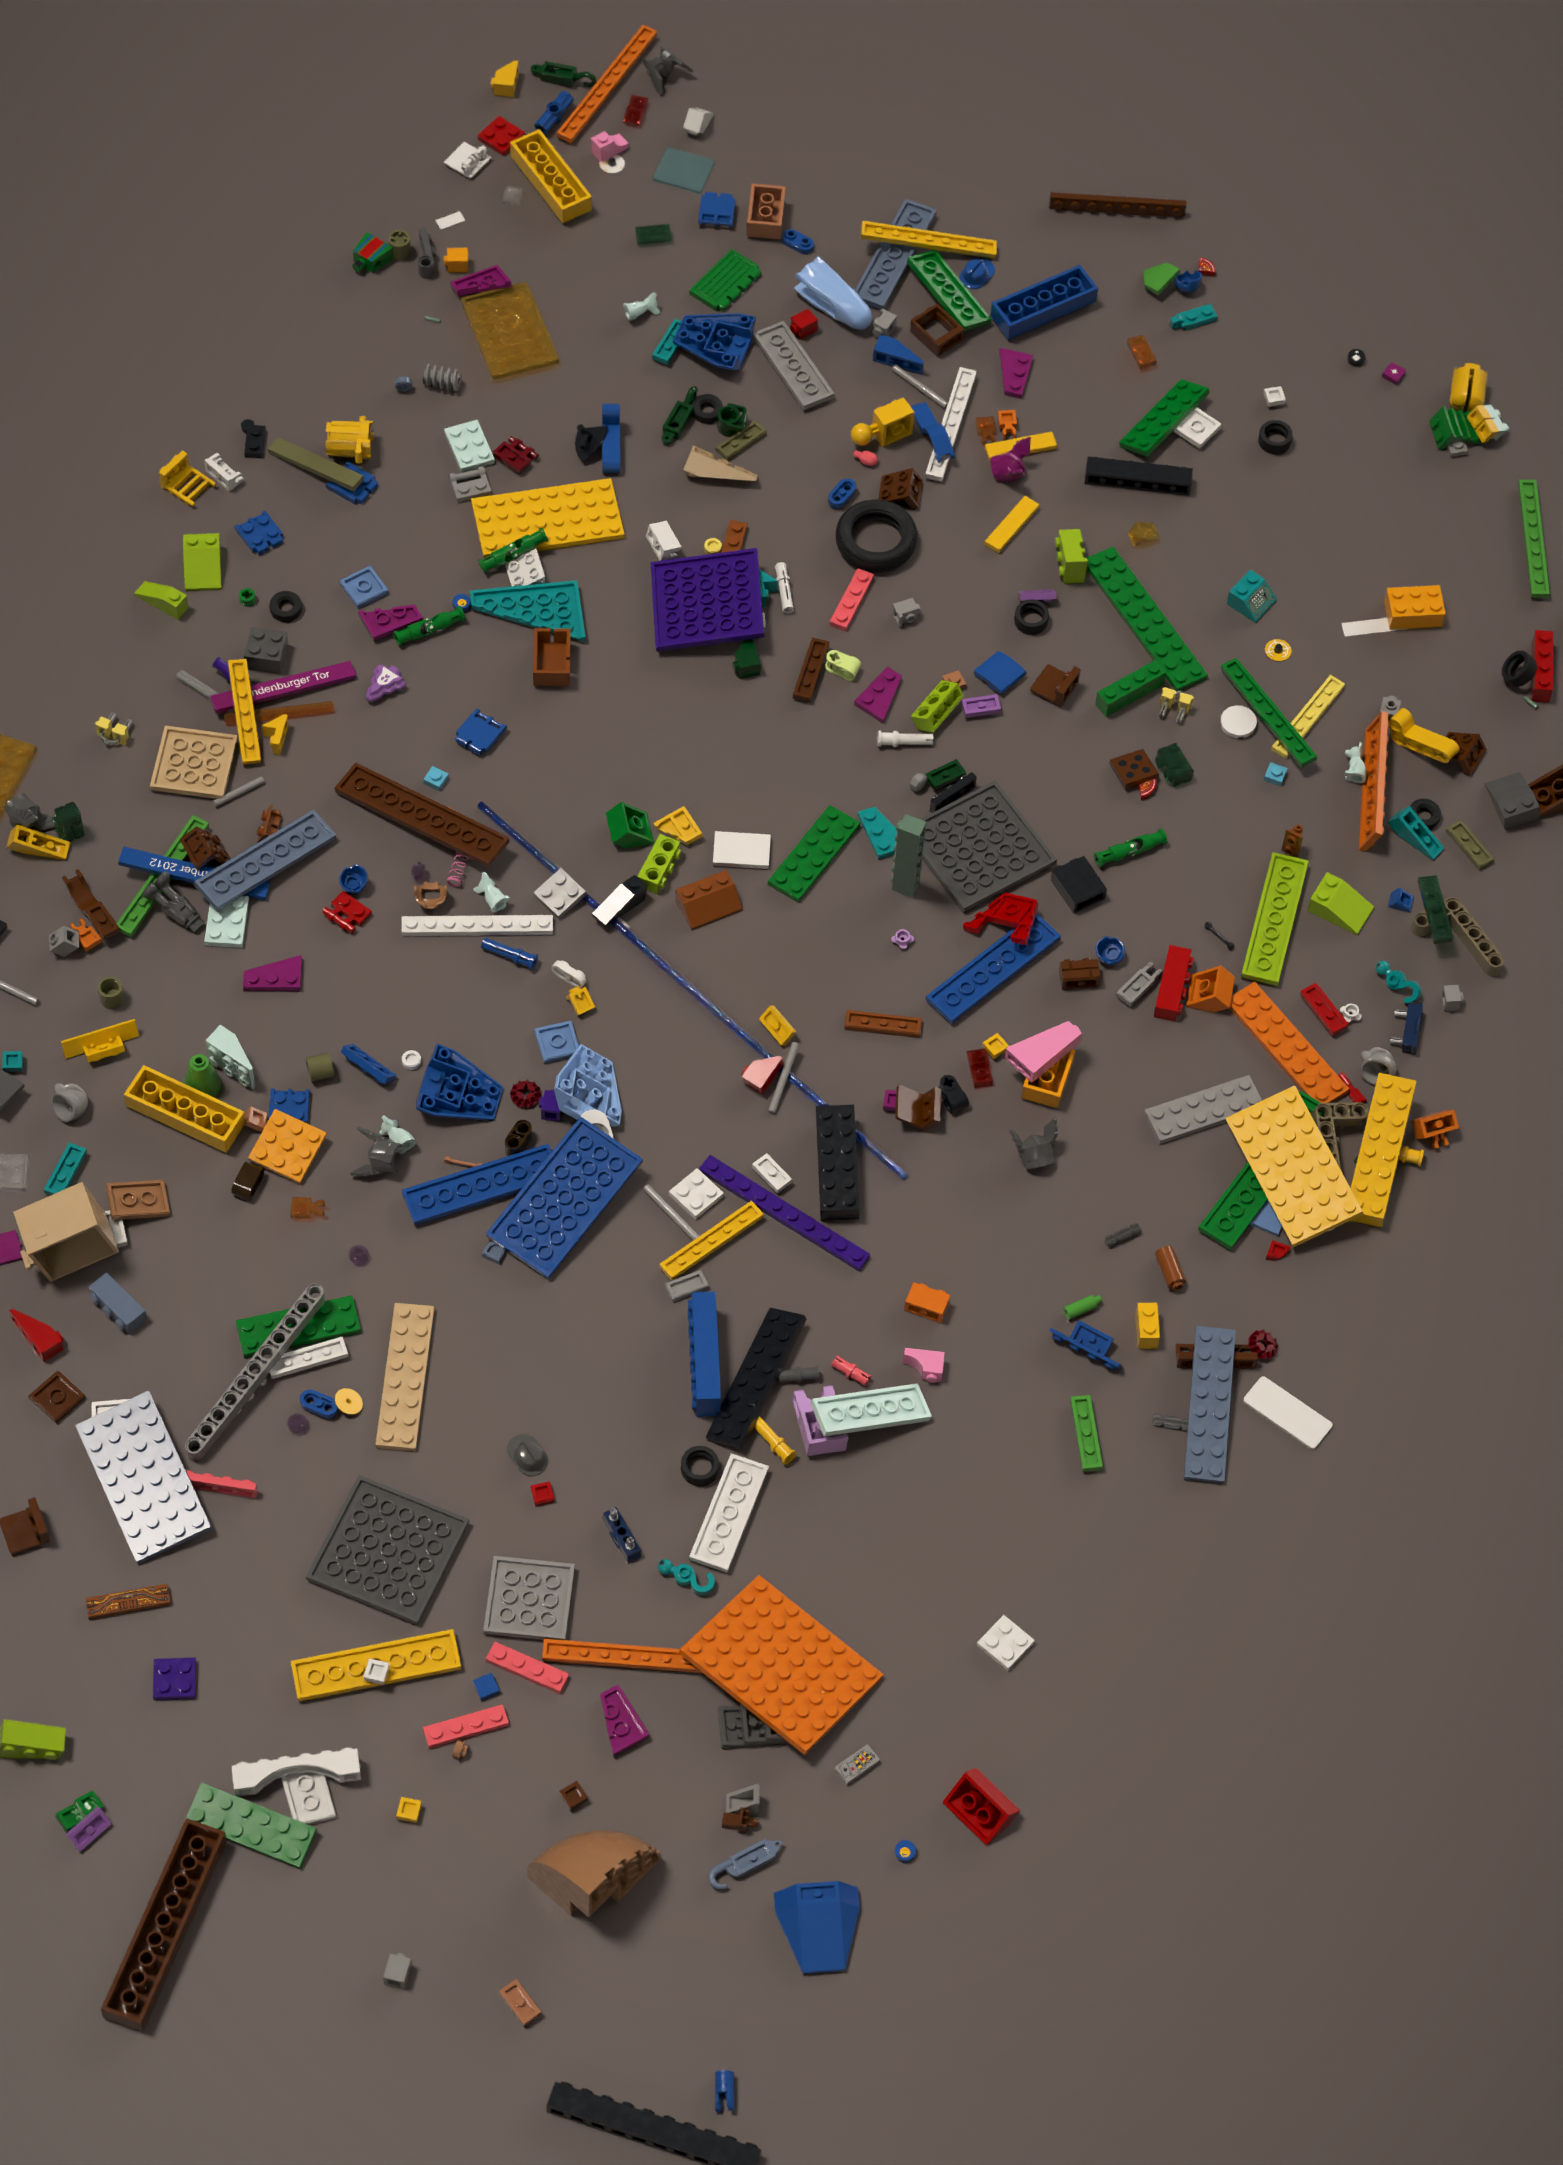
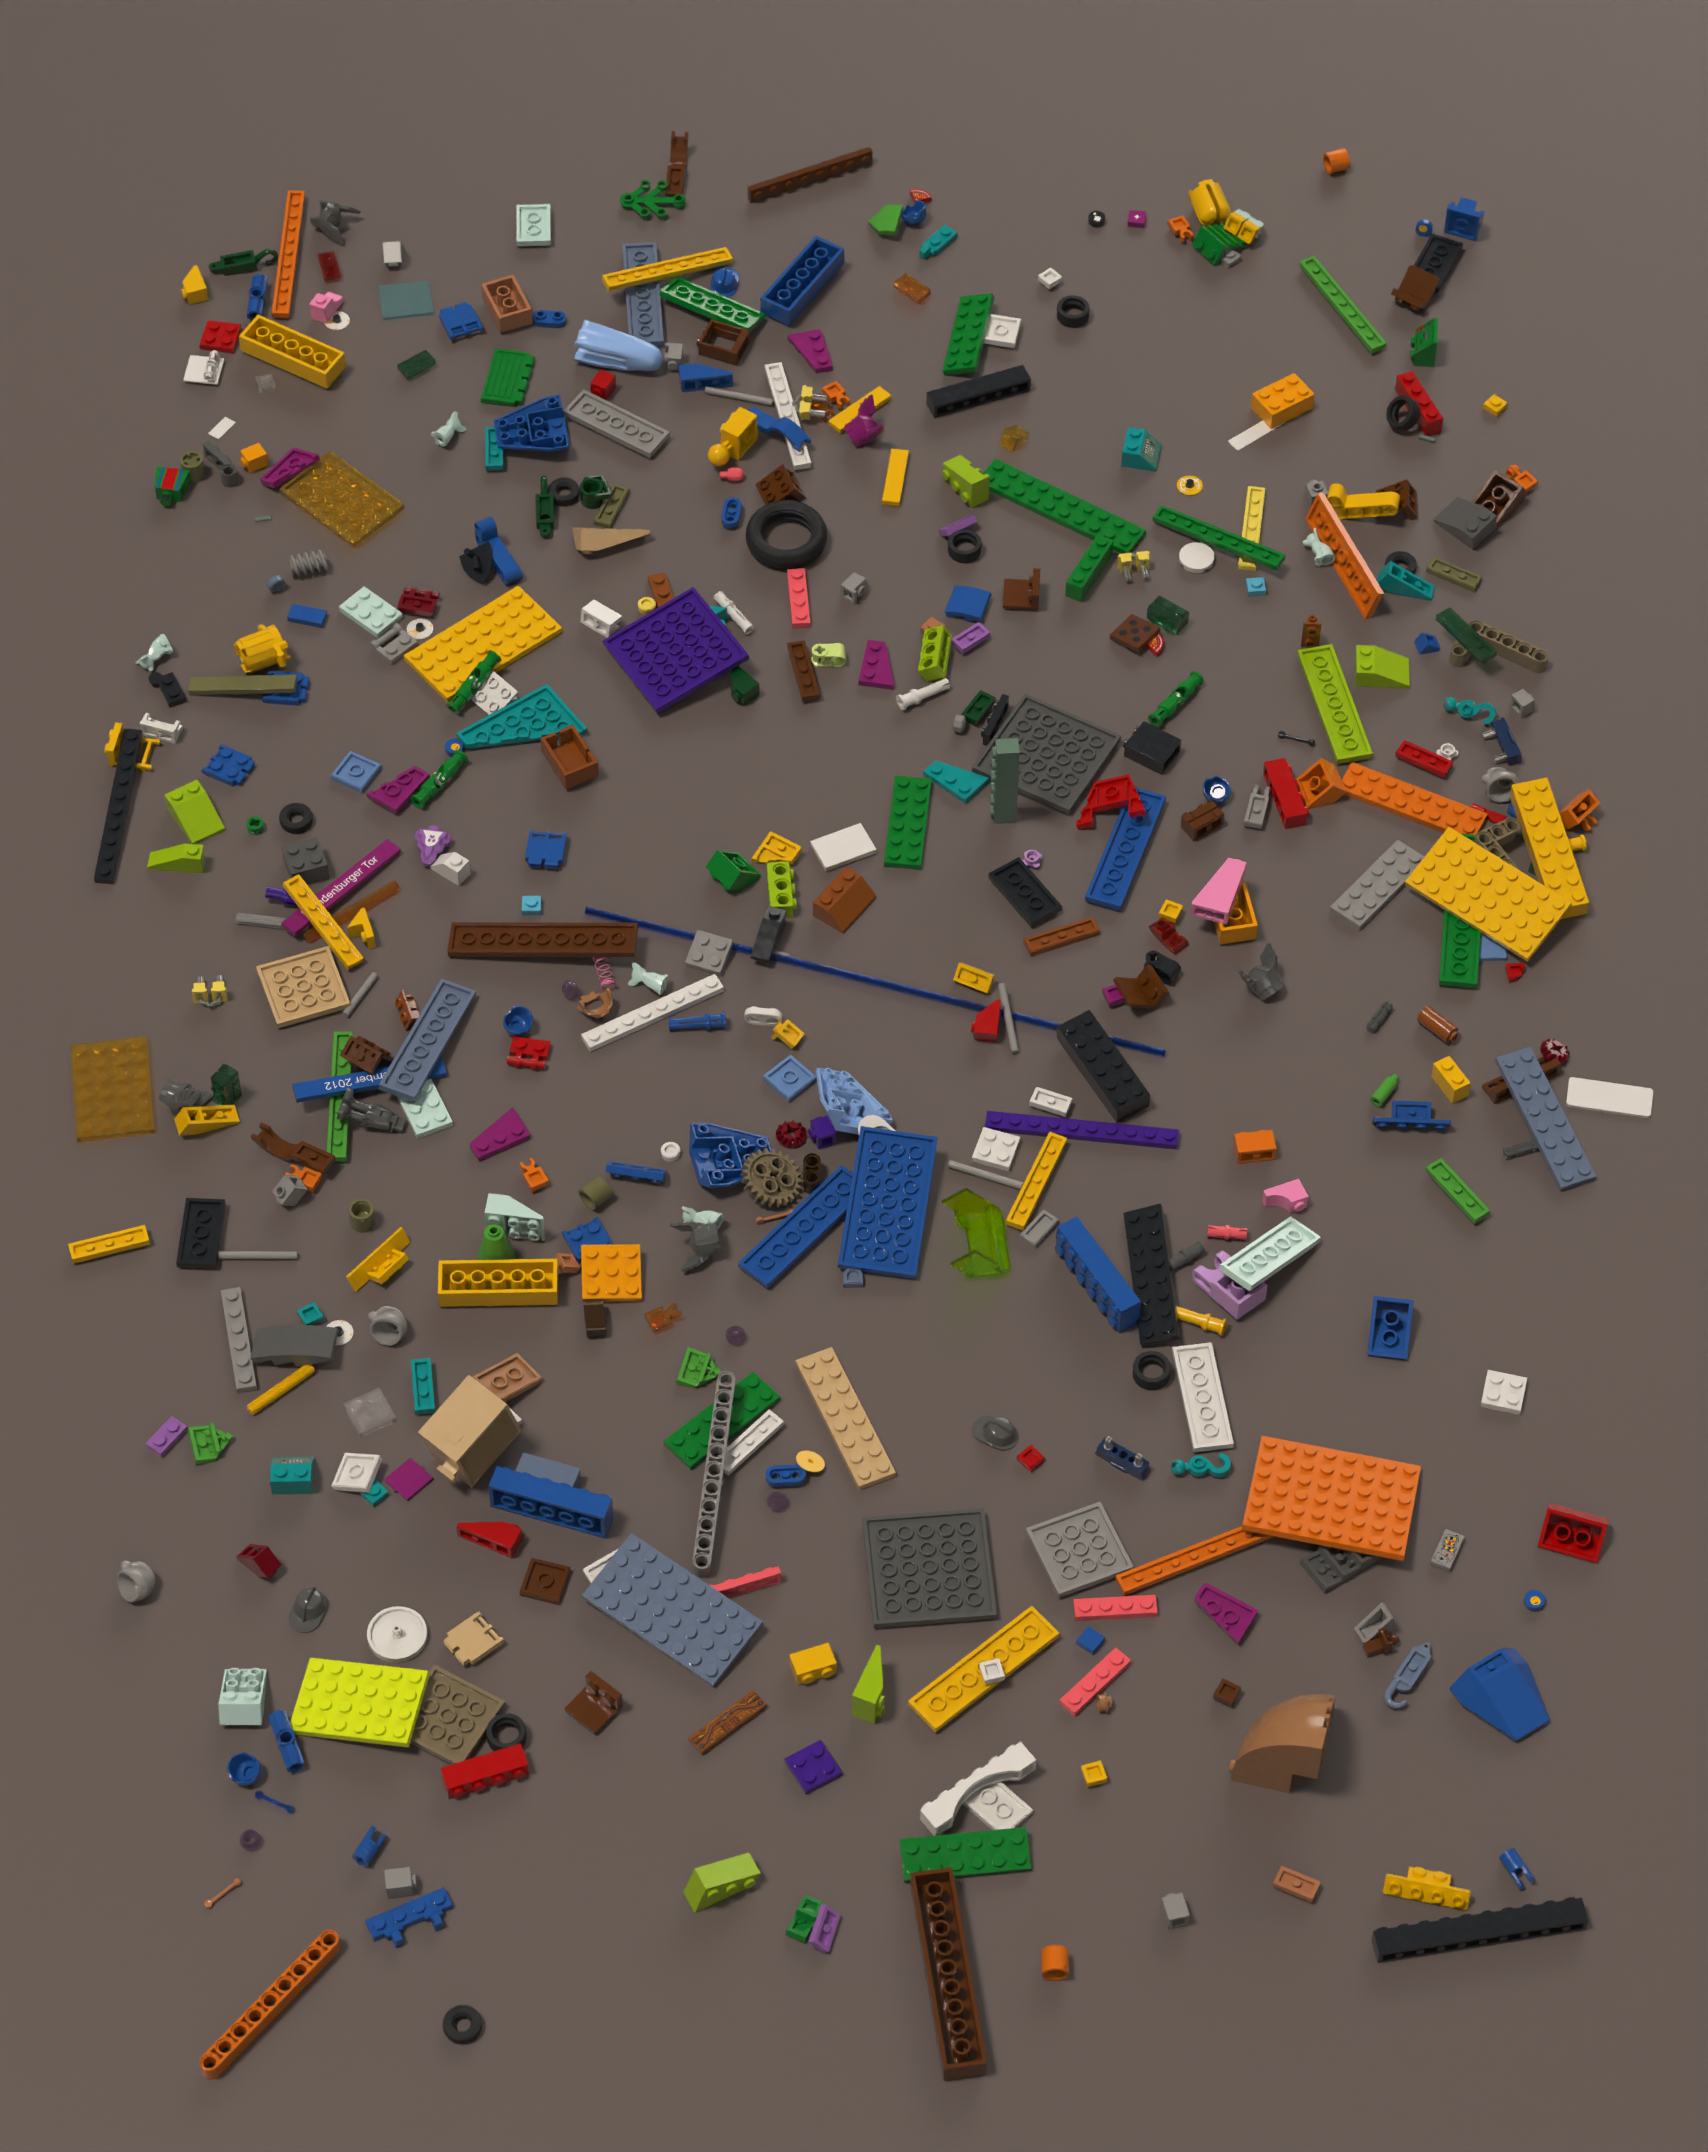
camera: 25 degrees left, 5 degrees down
(32, 1089) = (345, 1331): none -> white piece
(102, 1328) = (551, 1502): none -> blue brick
(143, 527) = (118, 806): none -> black plate
(231, 1586) = (813, 1664): none -> yellow brick
(261, 1635) = (868, 1694): none -> lime slope
(262, 1963) = (1054, 1962): none -> orange piece
(264, 399) = (158, 648): none -> light aqua animal
(279, 1026) = (534, 1177): none -> orange plate
(305, 1269) = (696, 1369): none -> bright green slope
(388, 713) = (452, 867): none -> white slope
(412, 425) = (307, 615): none -> blue tile
(462, 1124) = (771, 1177): none -> dark tan gear
(502, 480) = (420, 628): none -> white piece
(633, 1272) = (984, 1232): none -> clear neon green windscreen
(633, 2065) = (1427, 1887): none -> yellow bracket
(838, 147) = (533, 225): none -> light aqua plate
(875, 966) = (1025, 892): none -> black plate
(939, 1531) = (1390, 1327): none -> blue slope
(958, 167) = (651, 199): none -> green plant
(976, 413) = (806, 401): none -> light yellow piece
(1004, 145) = (677, 165): none -> reddish brown piece
(1428, 398) = (1181, 227): none -> orange plate

